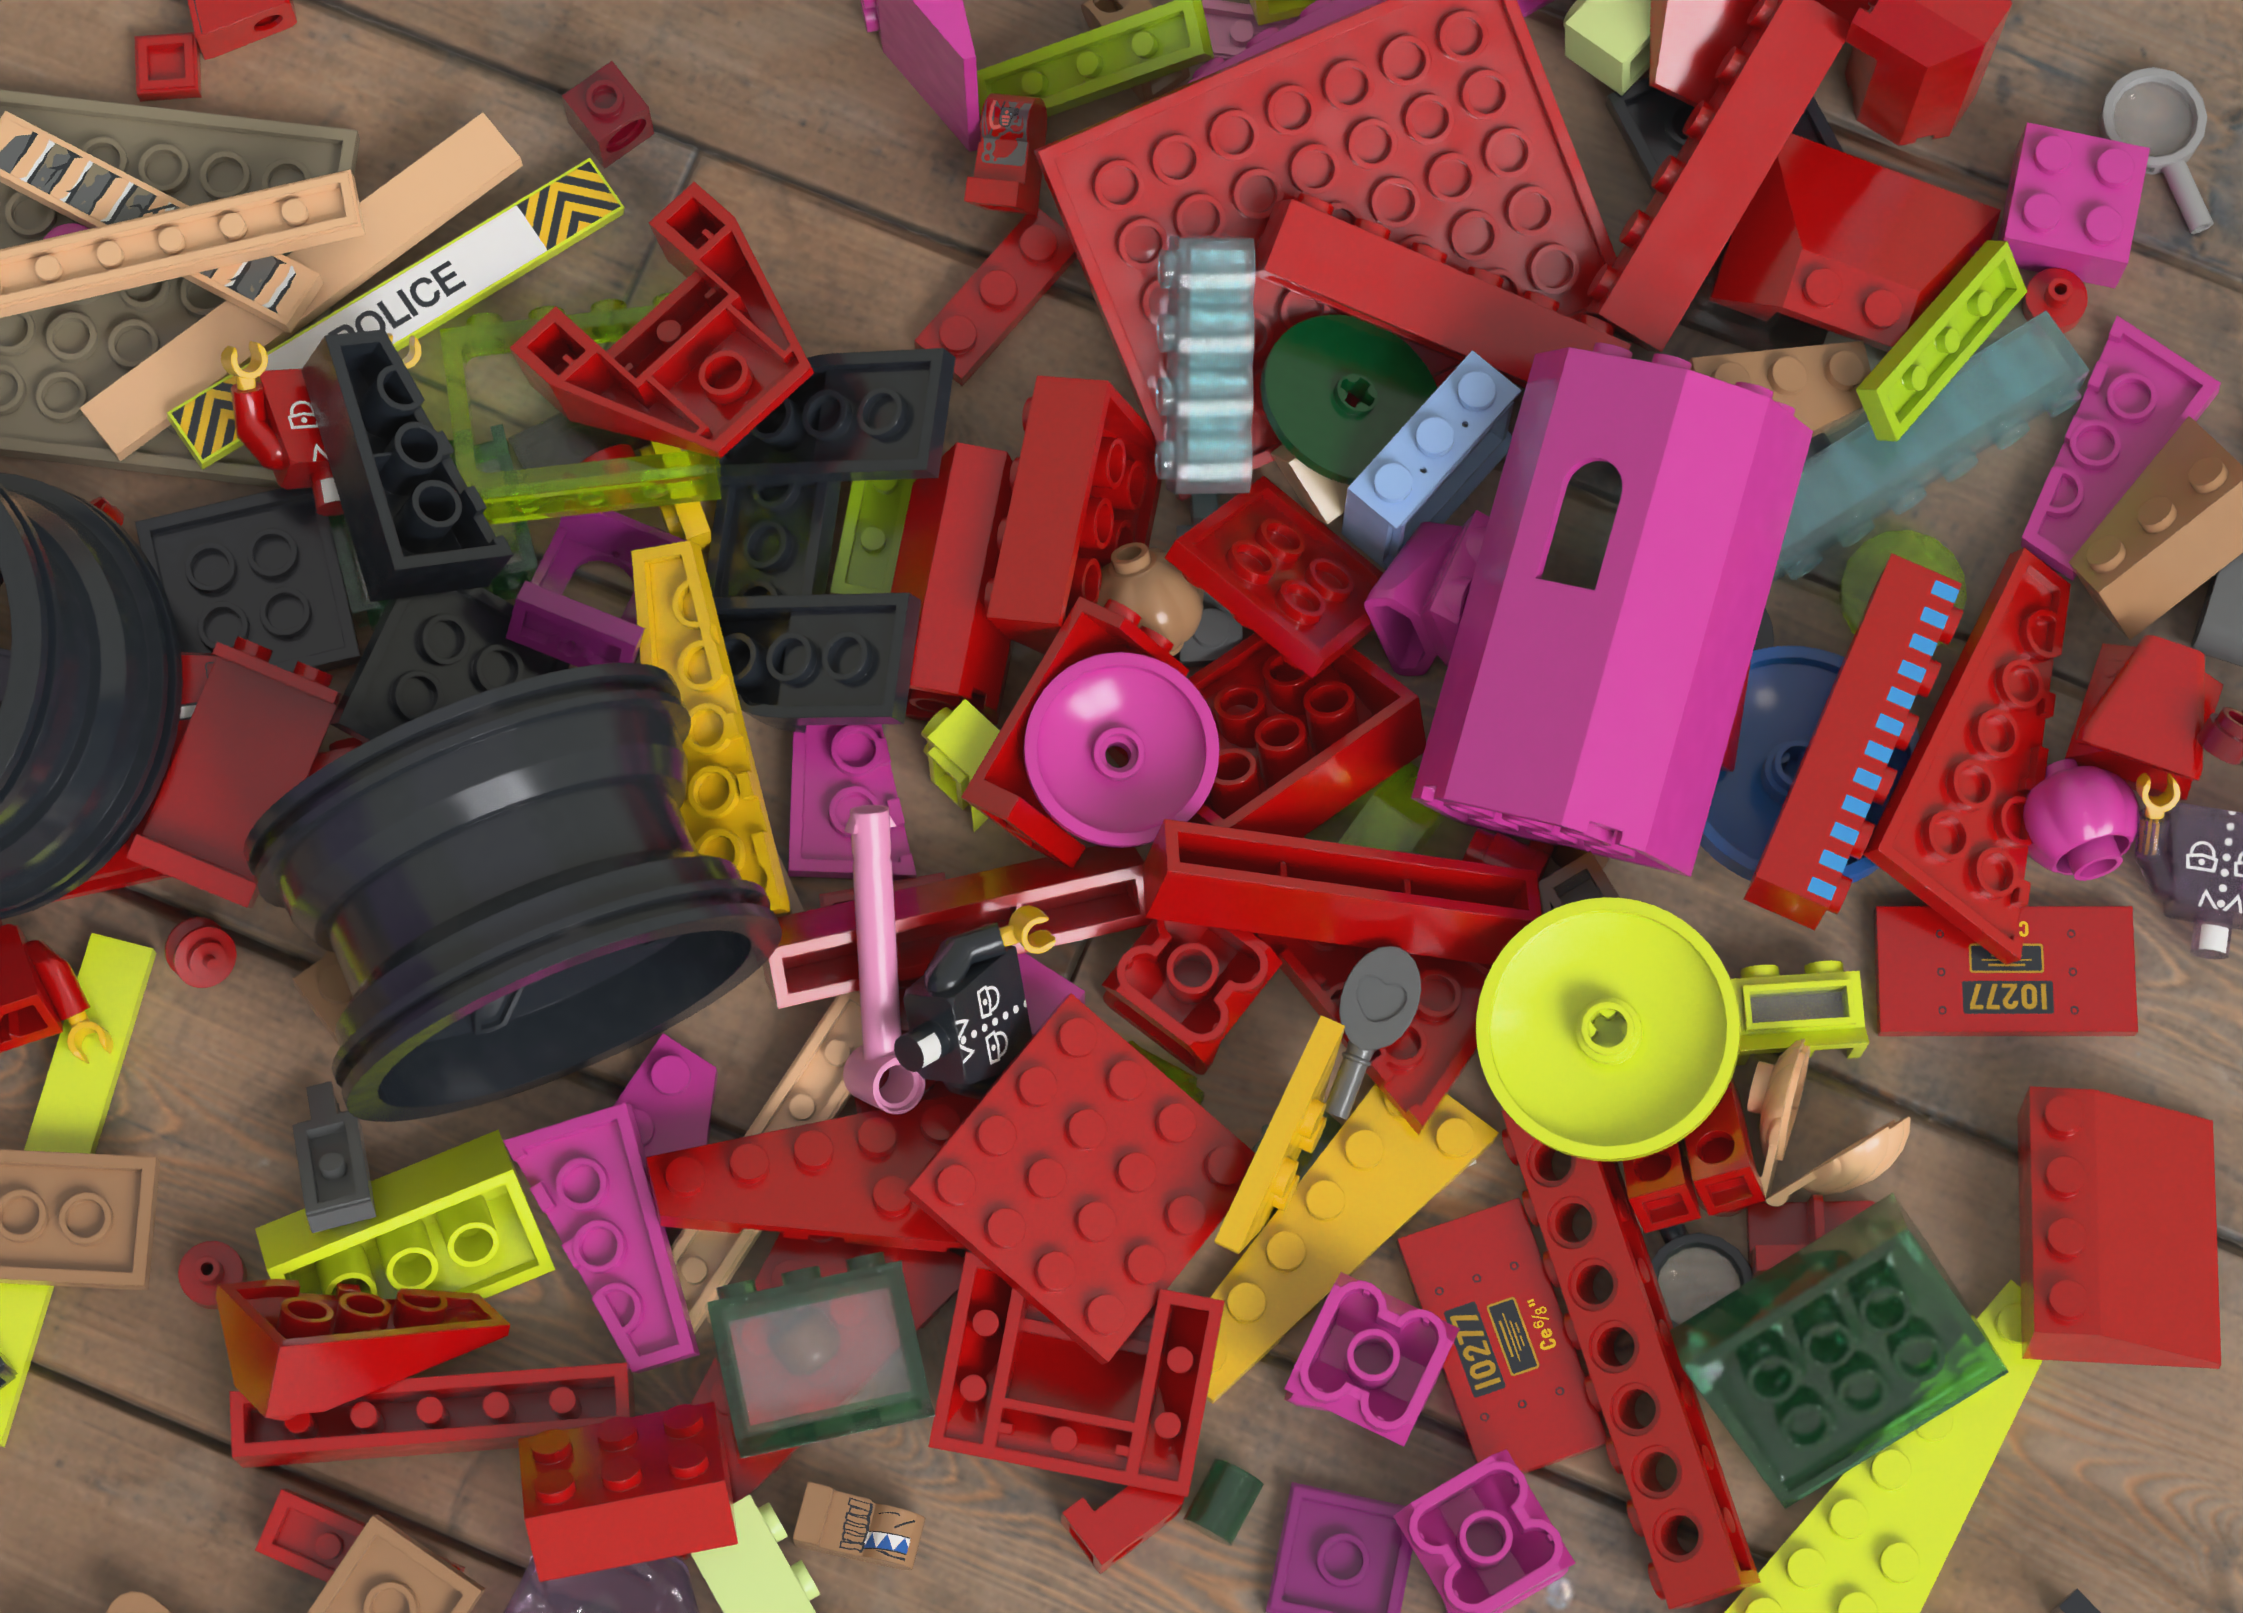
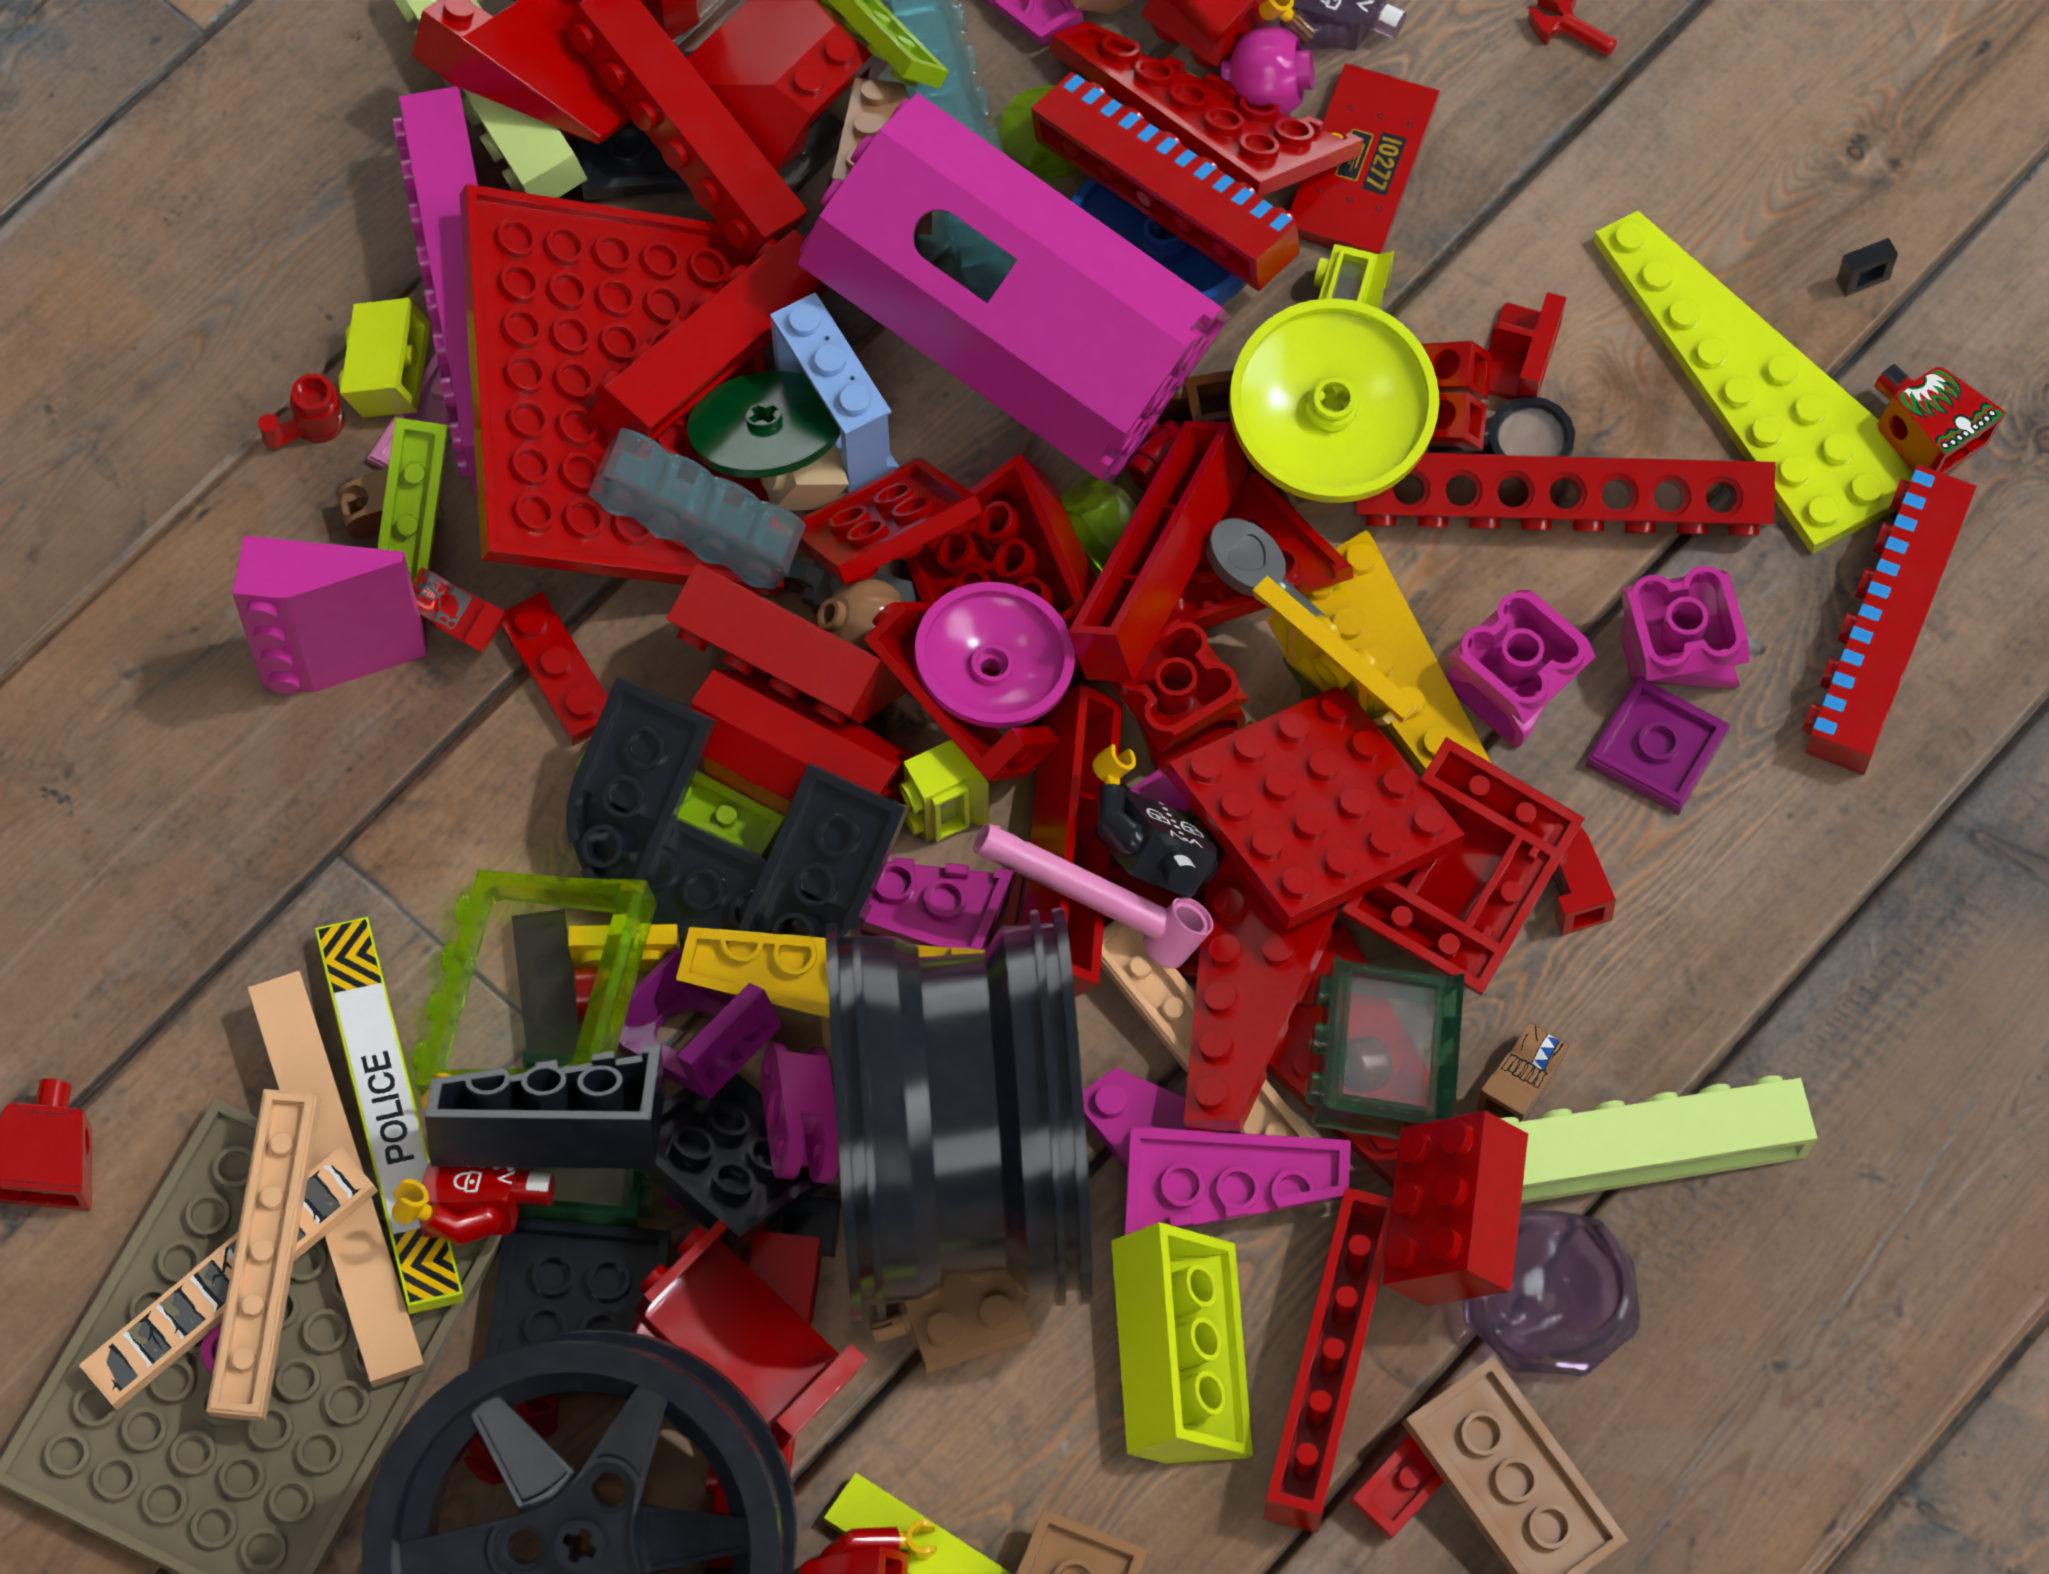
camera: 70 degrees left, 10 degrees down
(167, 67) = (85, 1238): red tile -> none
(200, 952) = (874, 1432): red wheel -> none
(208, 1255) = (1147, 1521): red tile -> none
(323, 1350) = (1259, 1401): red wedge -> none
(332, 1163) = (1097, 1368): dark grey hinge -> none
(608, 114) = (285, 900): dark red brick -> none
(694, 366) = (544, 877): red wedge -> none
(1223, 1502) = (1590, 802): clear green piece -> none
(1424, 594) = (943, 419): dark pink piece -> none
(1512, 1358) = (1570, 571): red tile -> none
(1777, 1096) = (1473, 297): light nougat animal -> none
(1837, 1351) = (1617, 346): clear green slope -> none
(2116, 1231) = (1585, 152): red slope -> none

